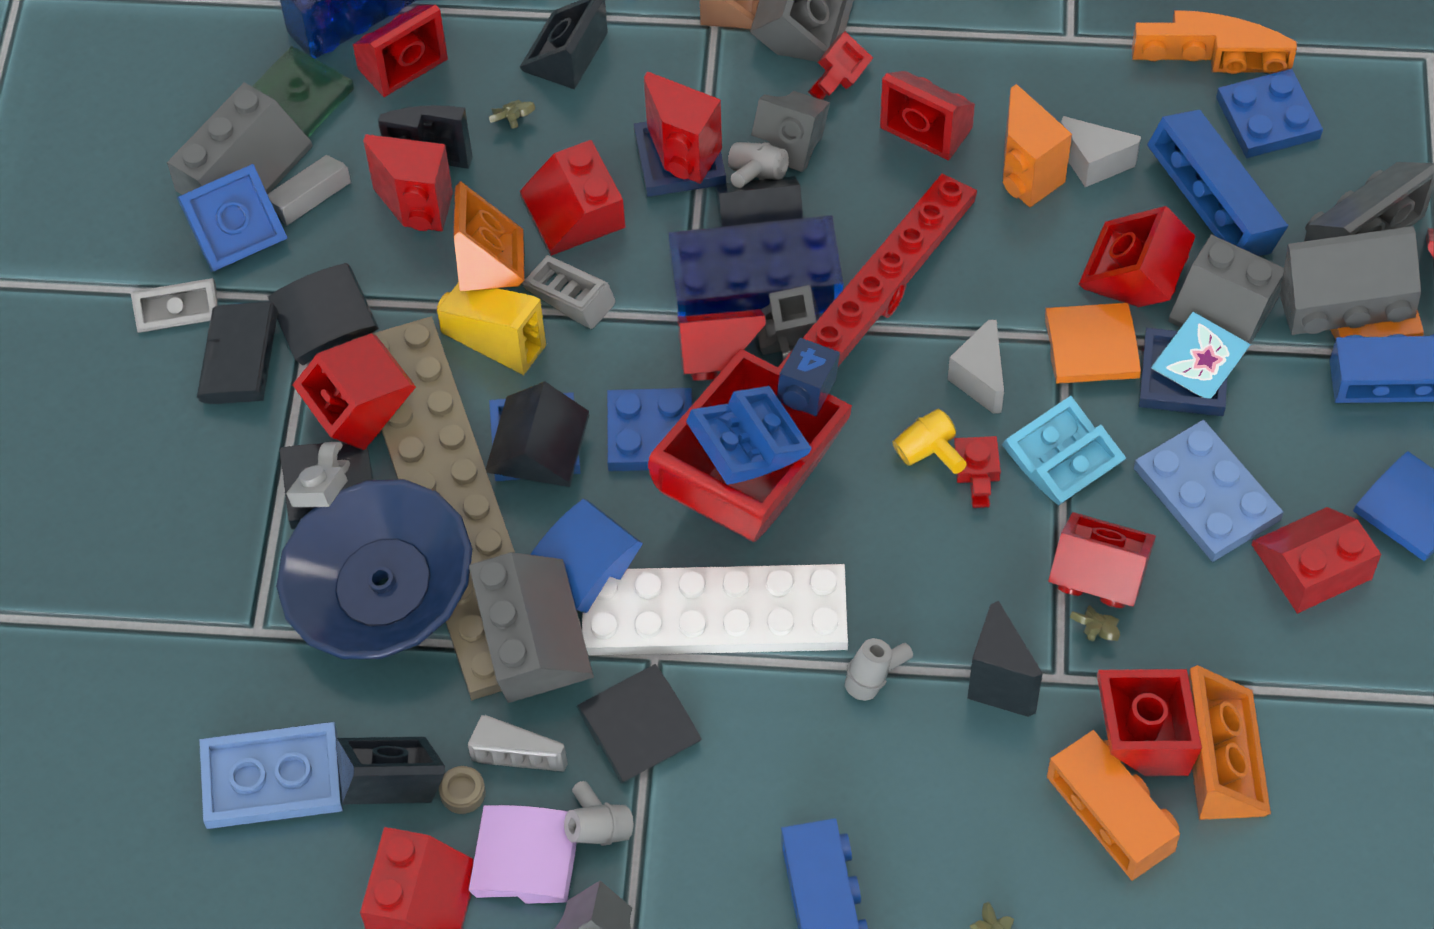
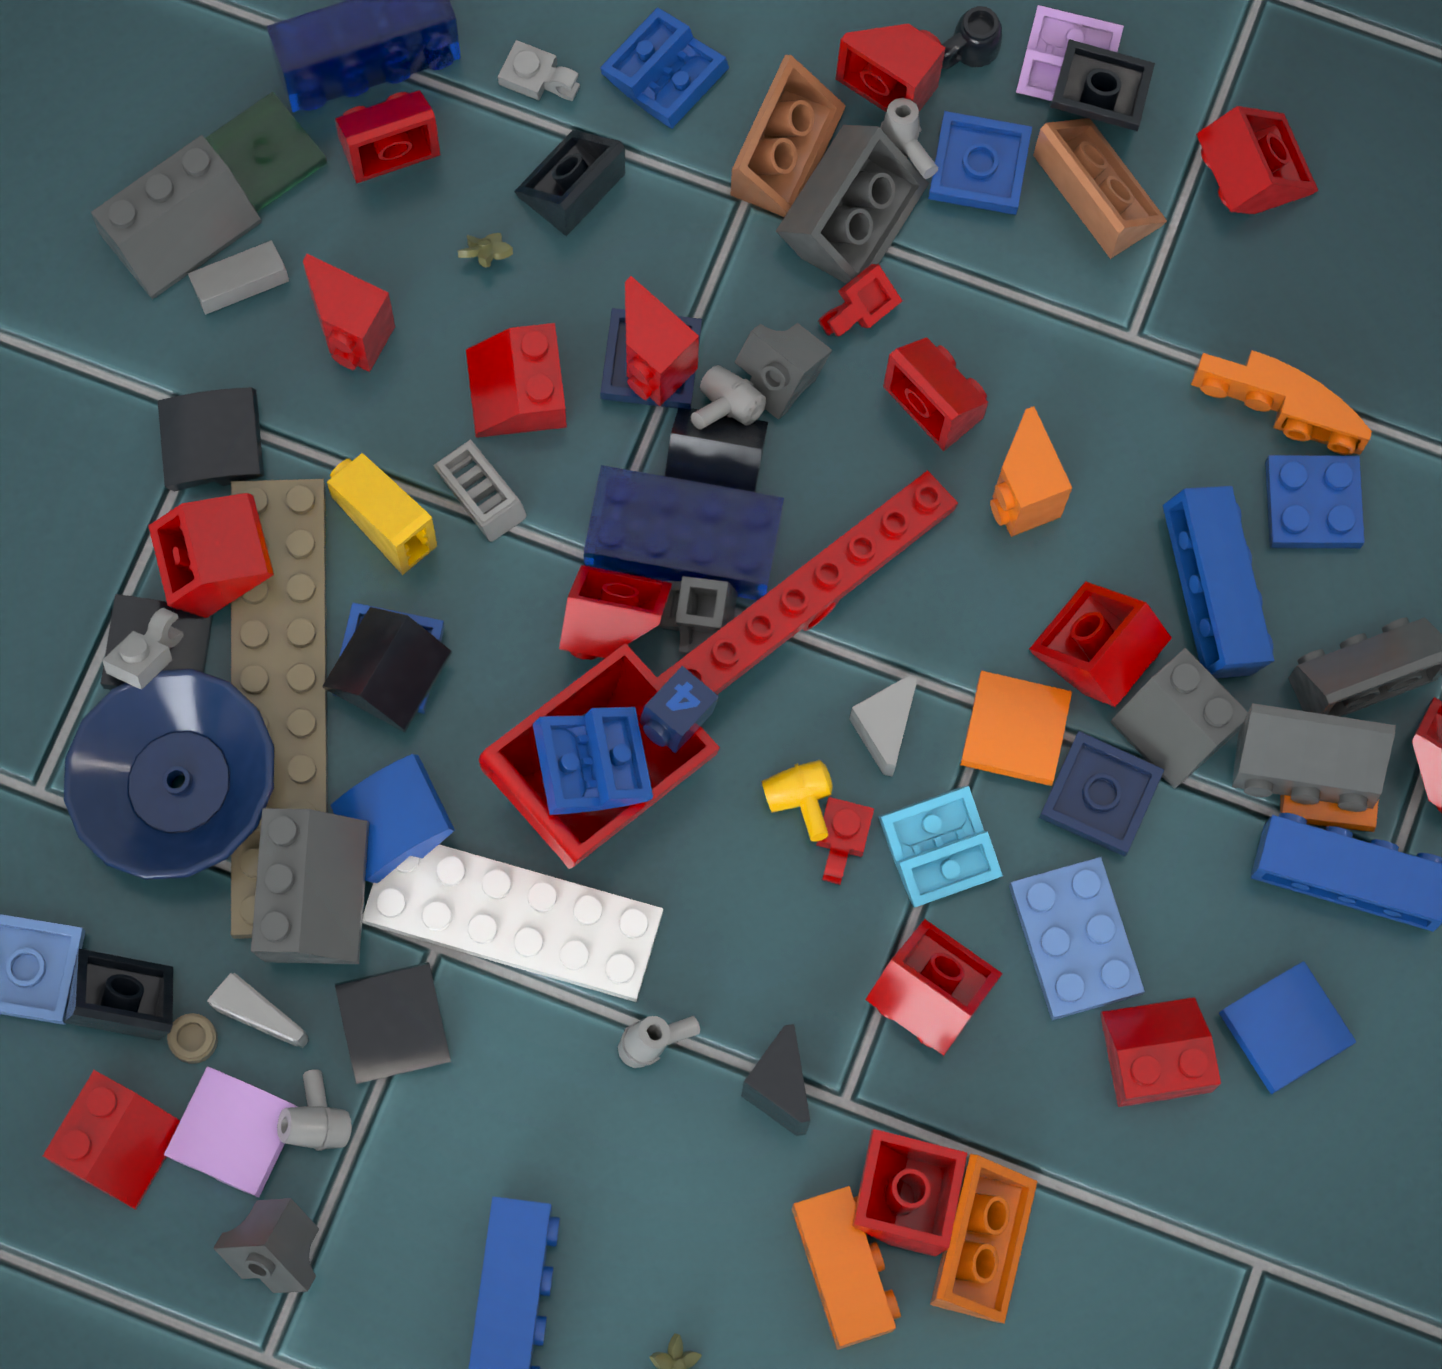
camera: 10 degrees right, 15 degrees up
(174, 305) = (59, 378): light grey slope -> none
(232, 217) = (144, 297): blue plate -> none
(237, 353) = (106, 461): black piece -> none
(433, 125) = (380, 260): black slope -> none
(486, 244) = (401, 418): orange slope -> none
(639, 423) = (510, 679): blue plate -> none
(1098, 624) = (902, 1059): olive plant -> none
(1099, 150) = (1104, 495): light grey slope -> none
(1200, 356) = (1124, 783): medium azure sticker -> none

